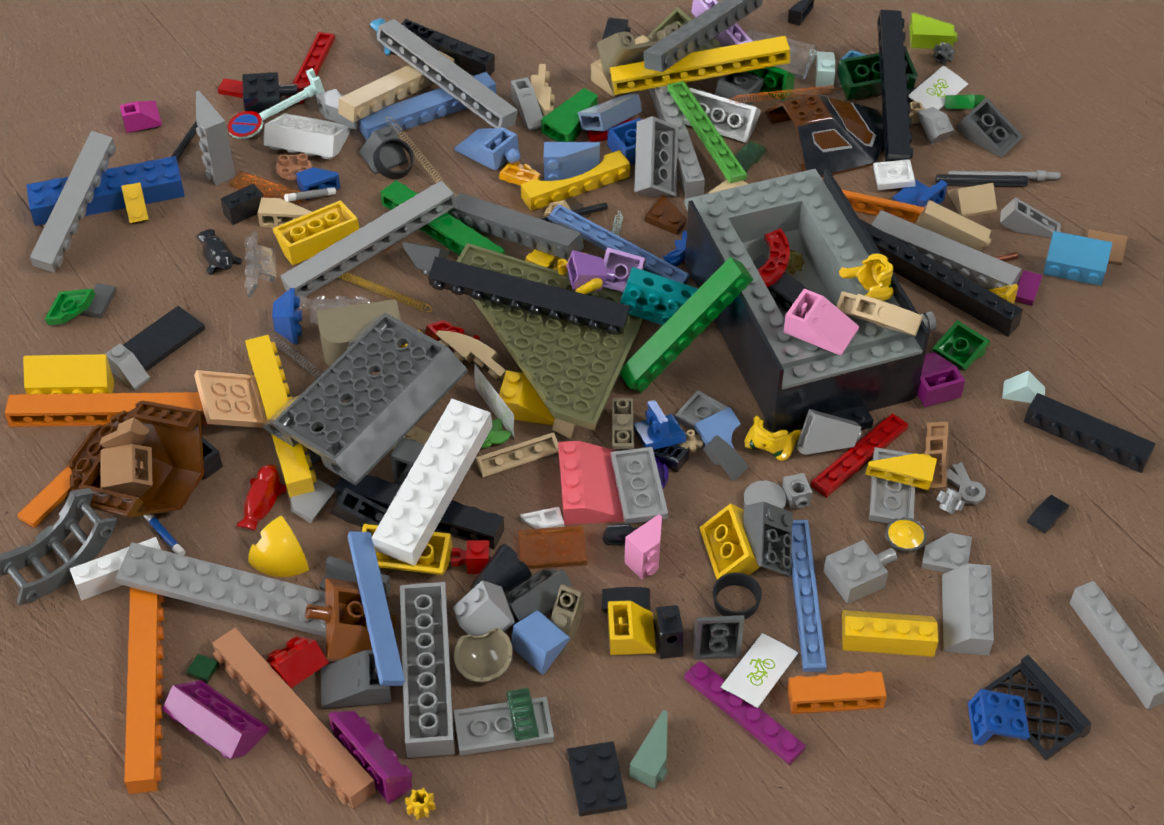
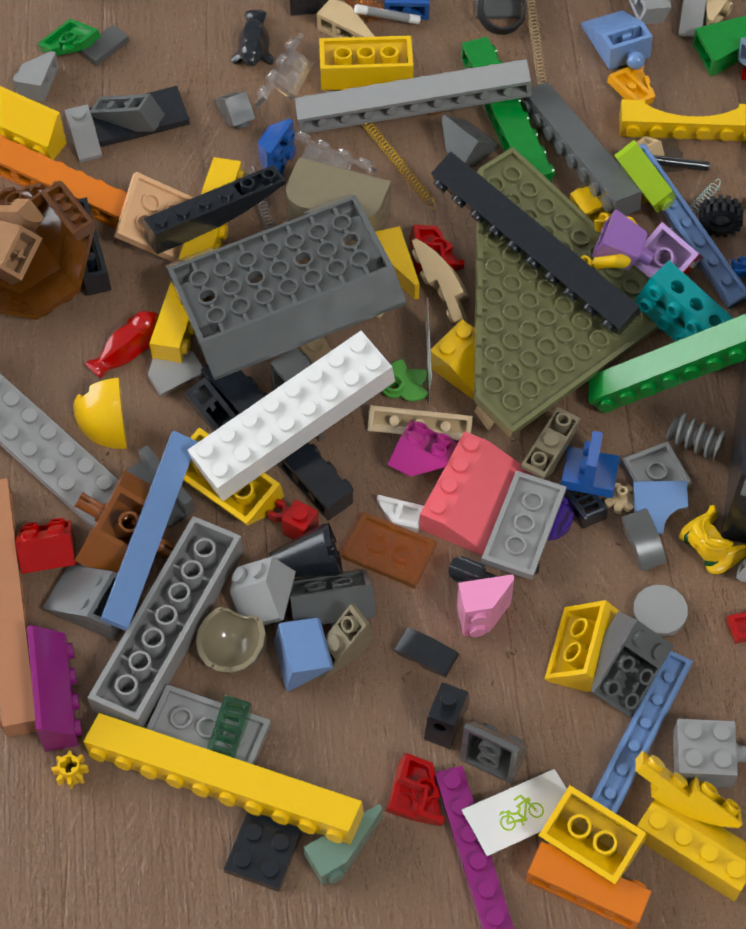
camera: 30 degrees right, 10 degrees up
(59, 340) = (36, 76): none -> light grey slope
(157, 335) = (132, 112): none -> dark grey slope
(166, 536) = (11, 342): blue bar -> none
(236, 302) = (235, 108): none -> dark grey slope
(271, 374) = (209, 210): none -> black slope
(532, 471) = (421, 450): none -> dark pink slope
(539, 748) = (225, 779): none -> yellow brick
(569, 159) = (693, 92): medium blue slope -> none
(574, 219) = (645, 176): none -> lime slope
(630, 629) = (406, 689): yellow slope -> none
(643, 223) = (721, 215): none -> black tyre
(678, 694) = (415, 792): none -> red slope
(716, 376) = (696, 436): none -> light grey piece
(741, 580) = (555, 687): black tyre -> none
(797, 491) = (705, 611): light grey brick -> none
(821, 653) = (593, 835): none -> yellow slope
(866, 602) = (695, 800): none -> yellow slope

